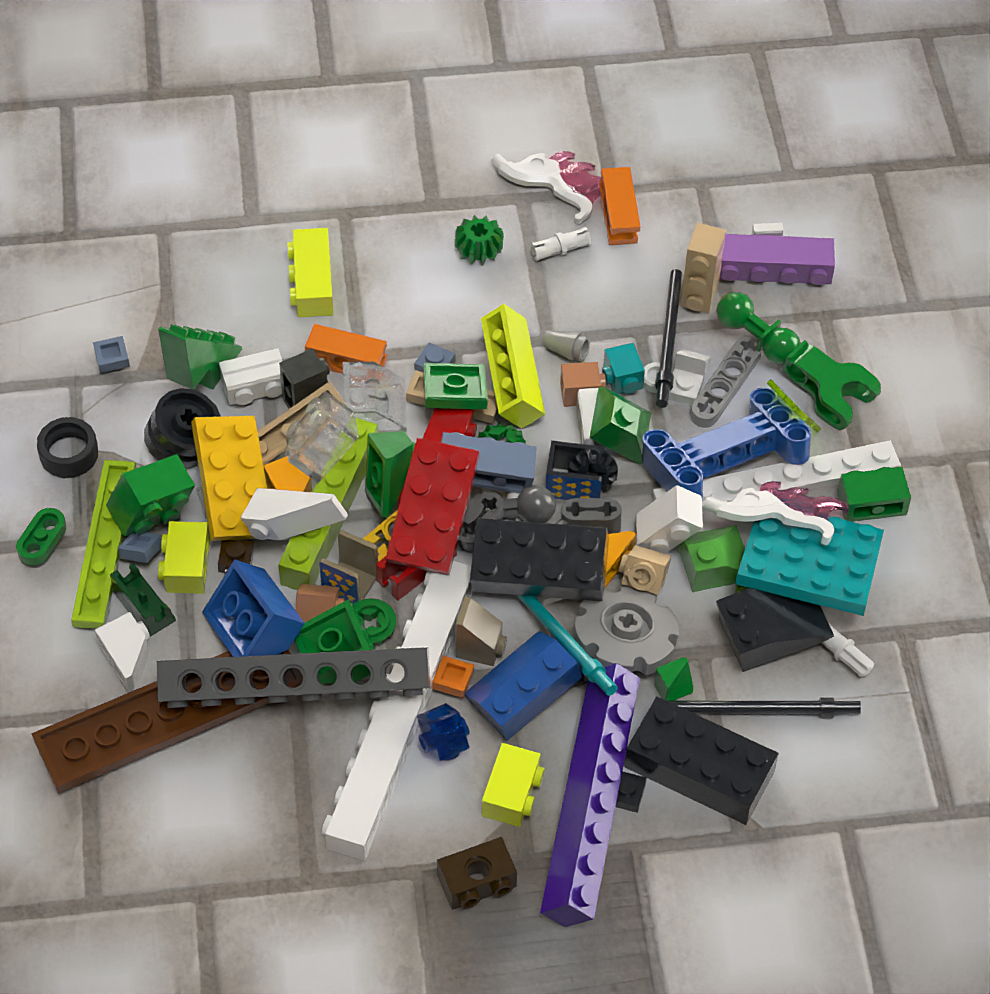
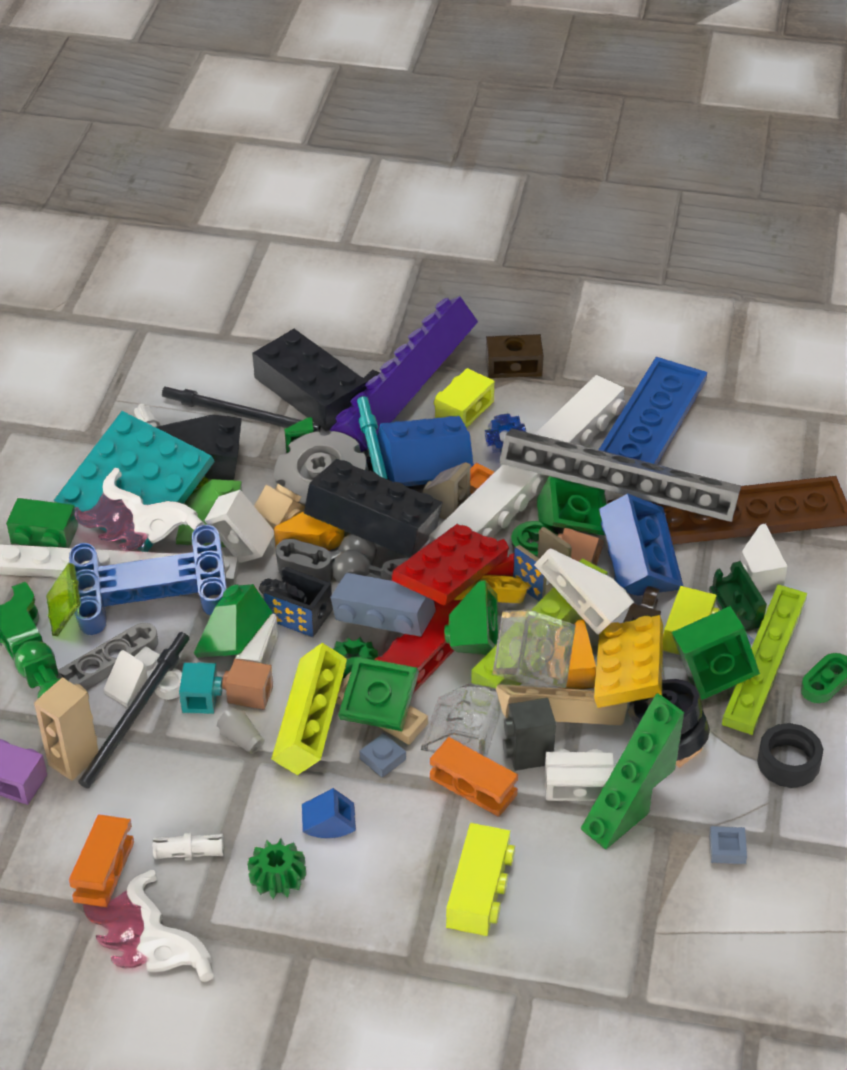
camera: 160 degrees left, 10 degrees down
(285, 826) = (655, 411): none -> blue plate
(456, 292) = (328, 815): none -> blue brick

